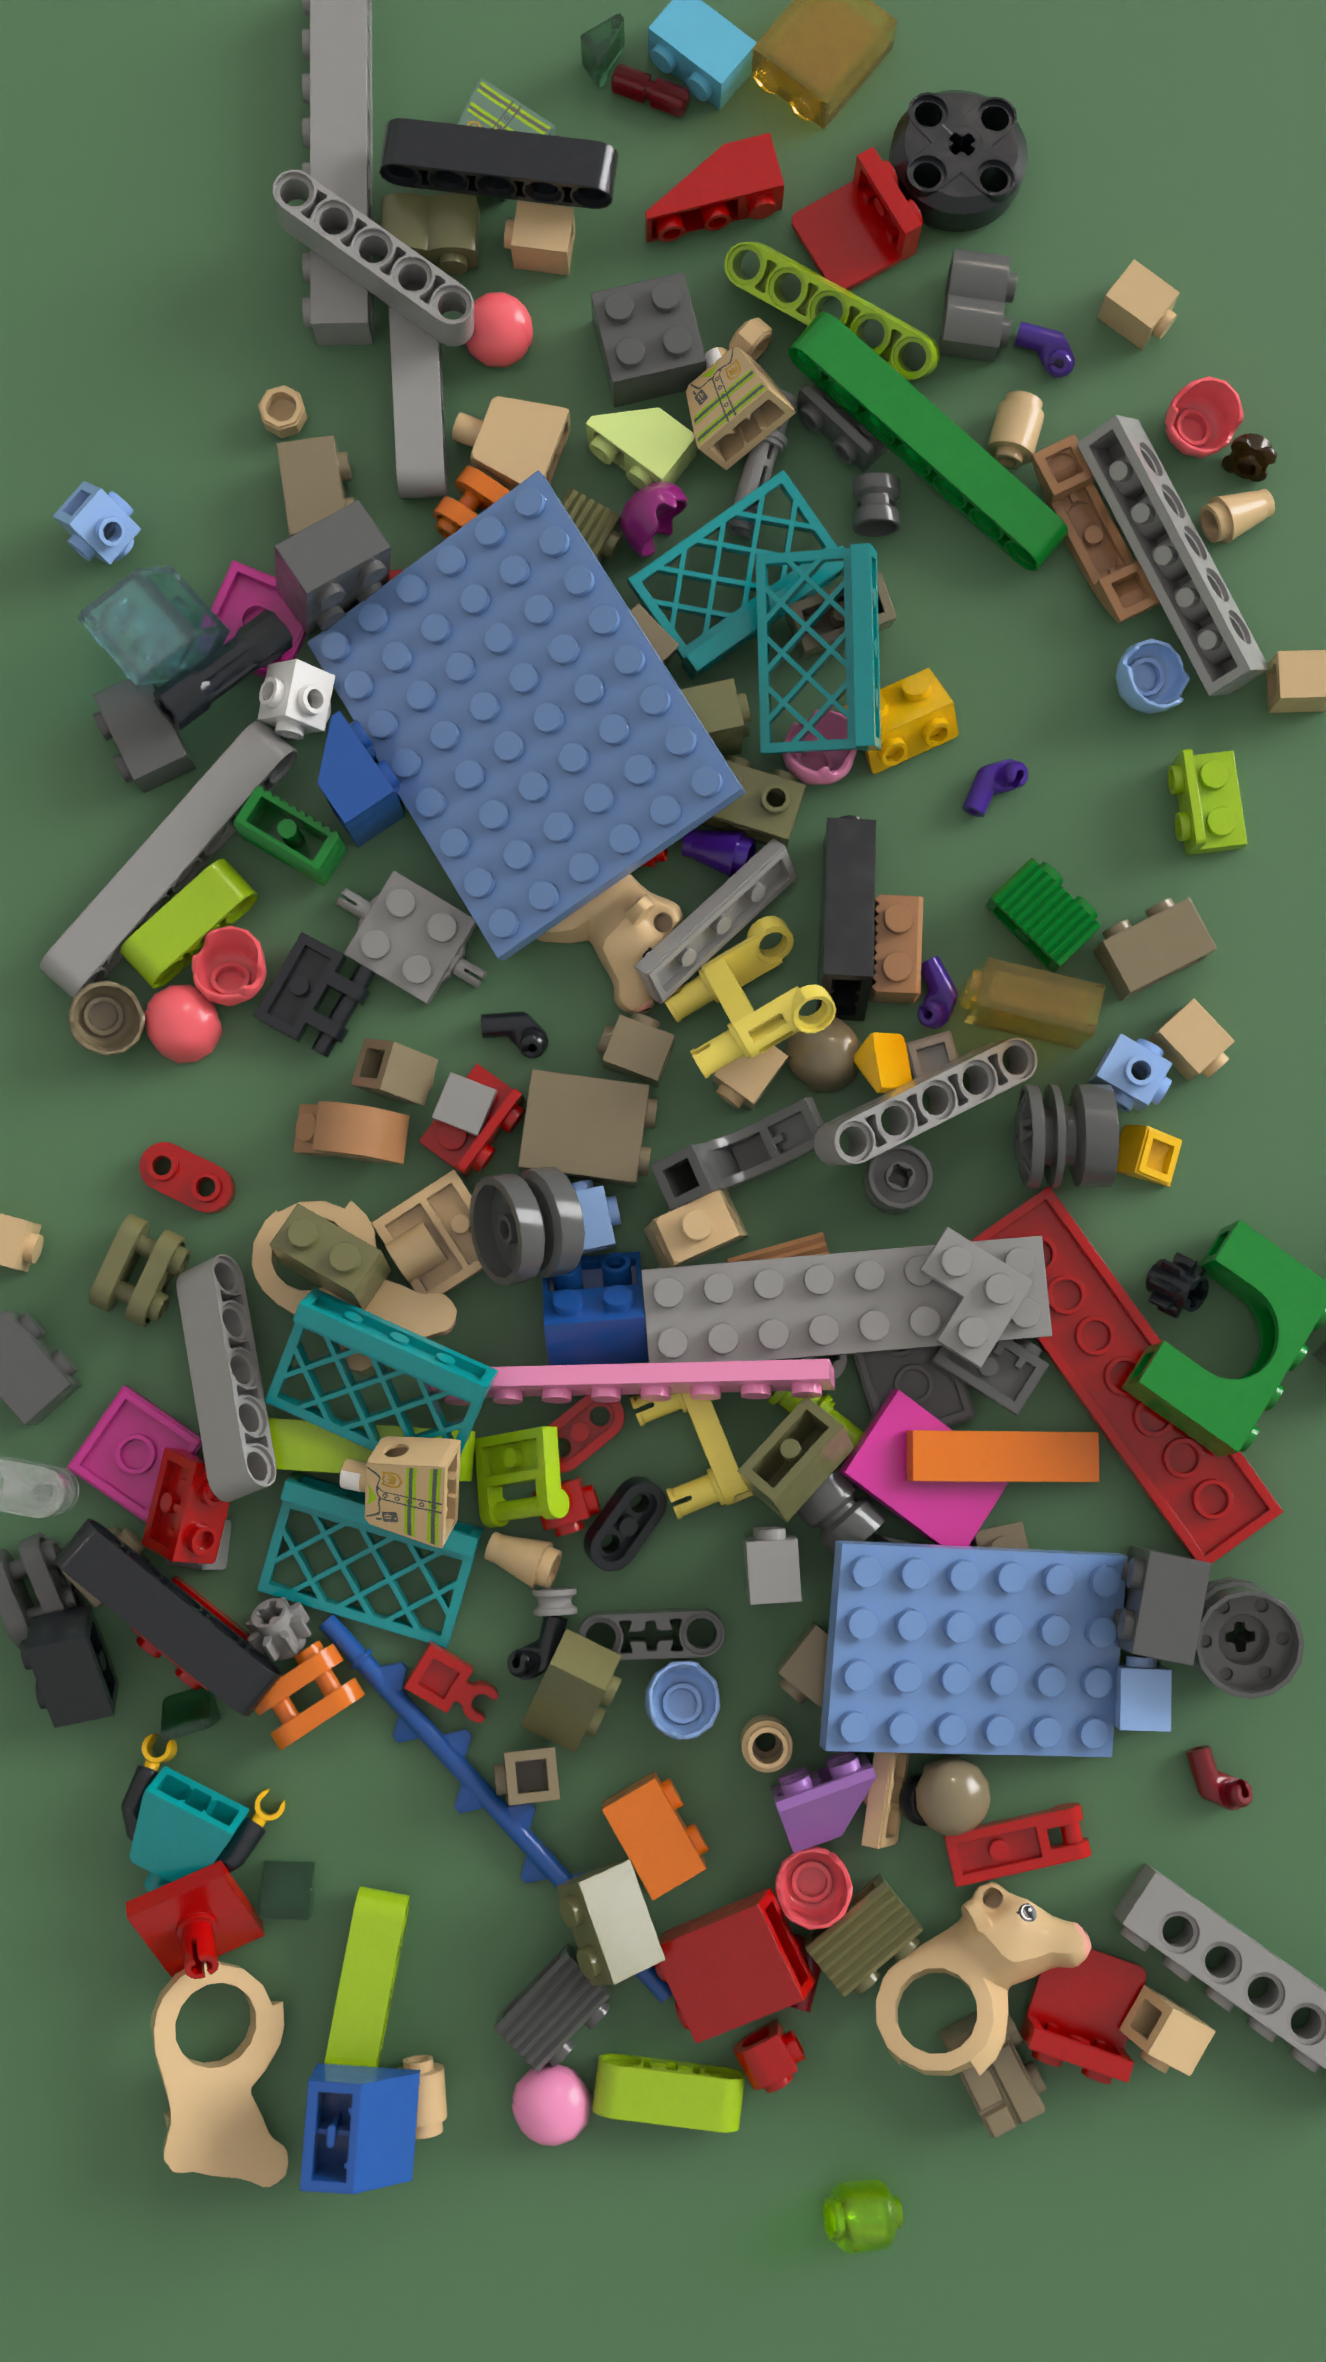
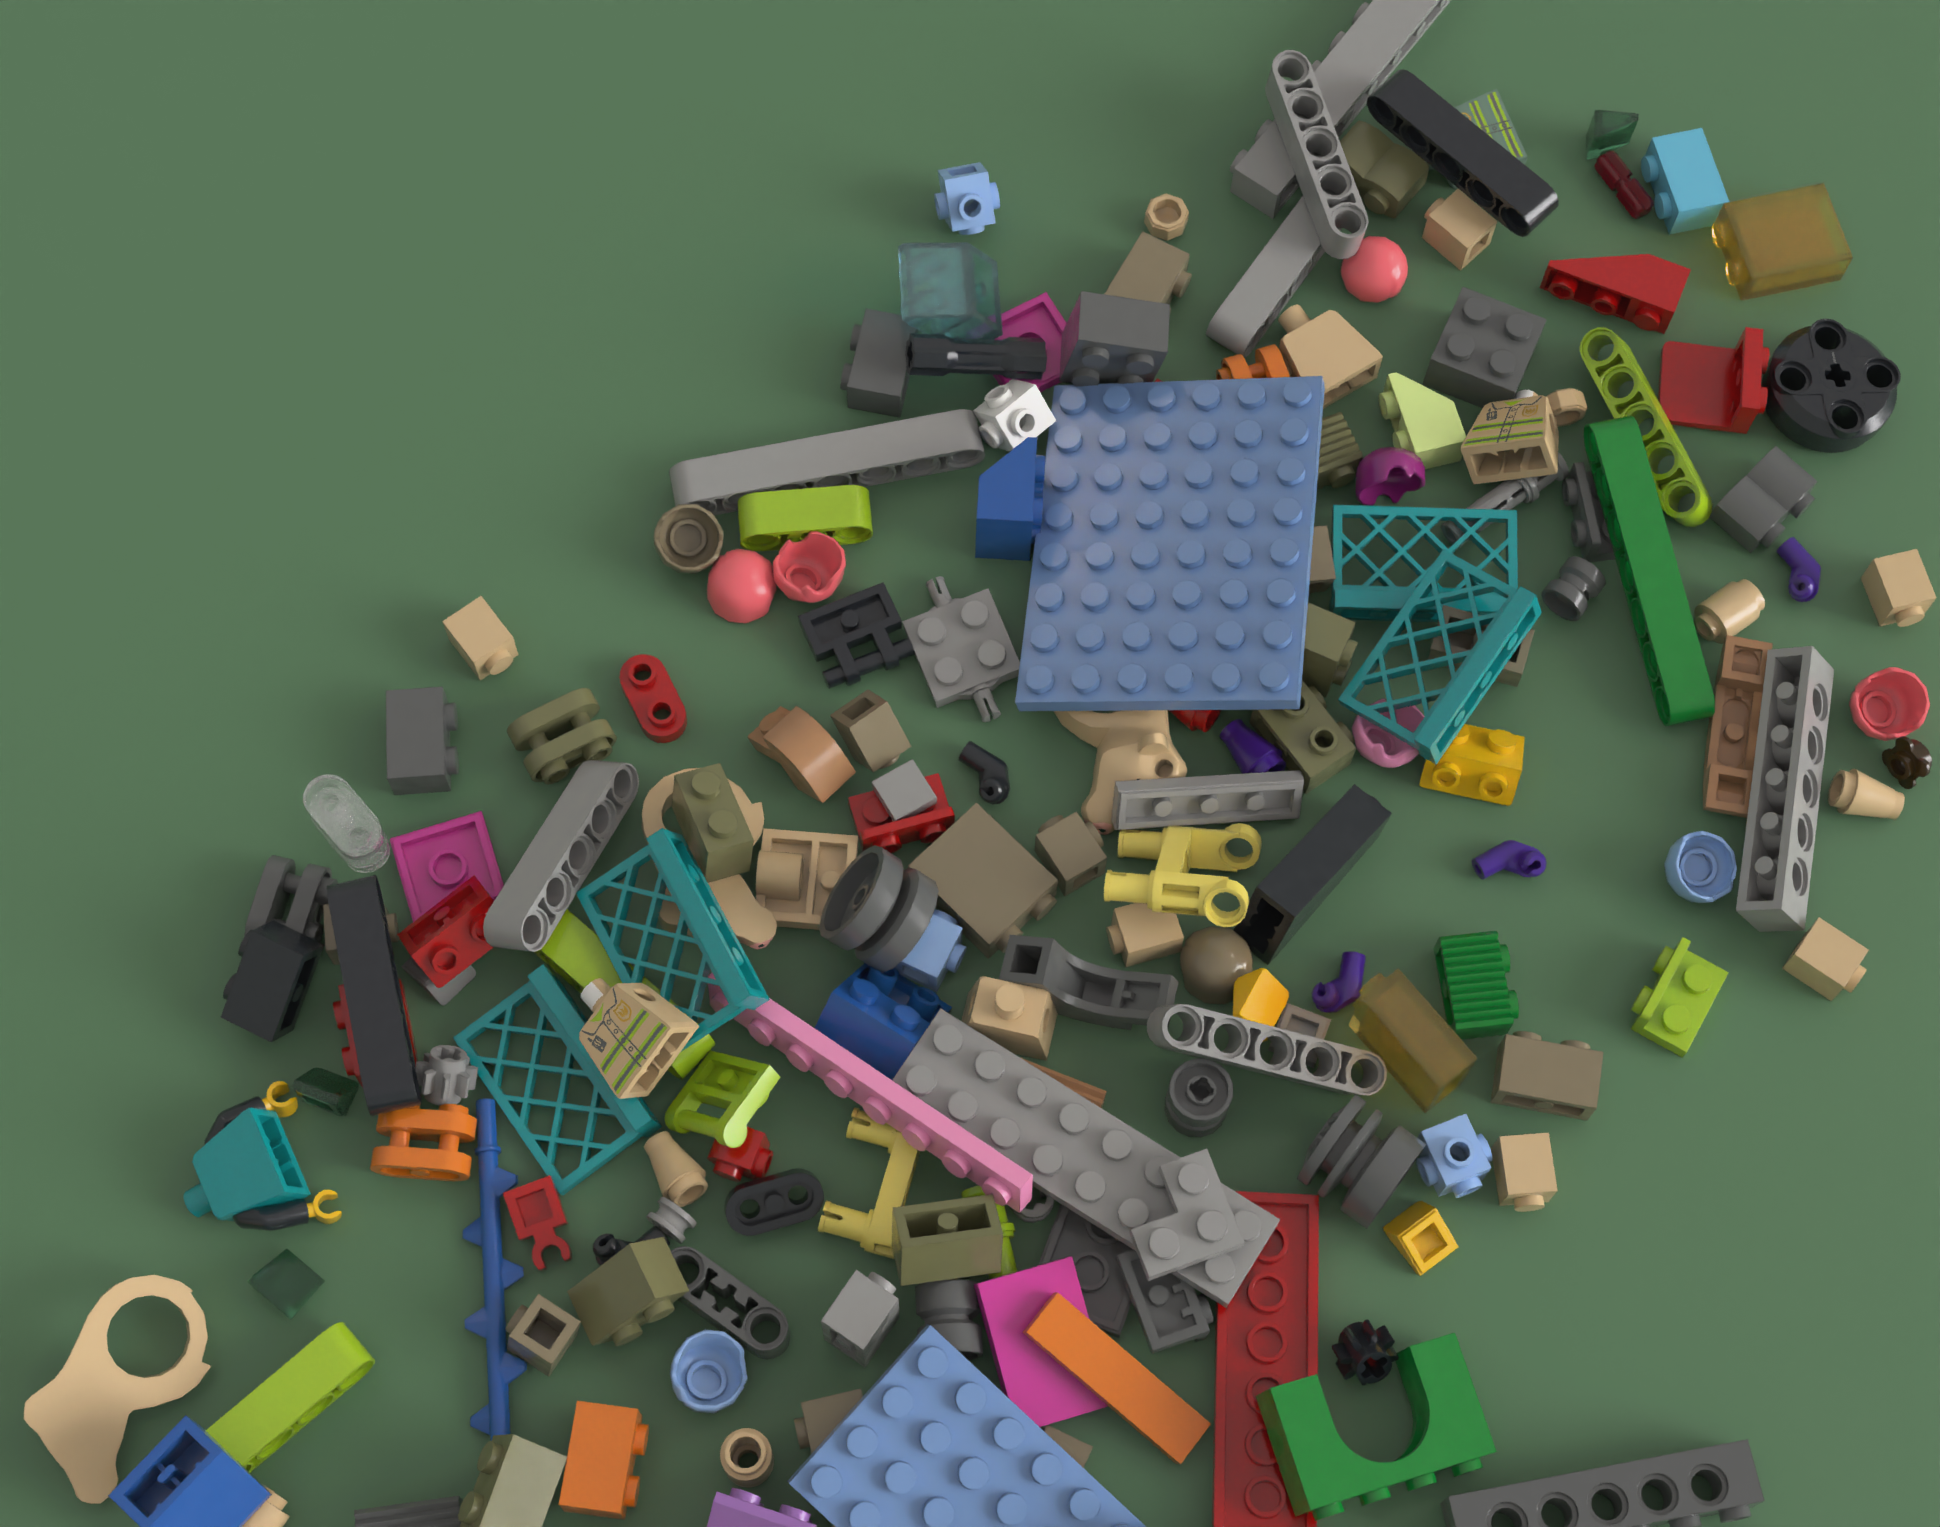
camera: 35 degrees right, 15 degrees down
(195, 1920) = (202, 1242): red tile -> none
(290, 835) = (931, 508): green brick -> none
(583, 1434) = (796, 1104): red plate -> none
(897, 949) = (1333, 923): medium nougat brick -> none

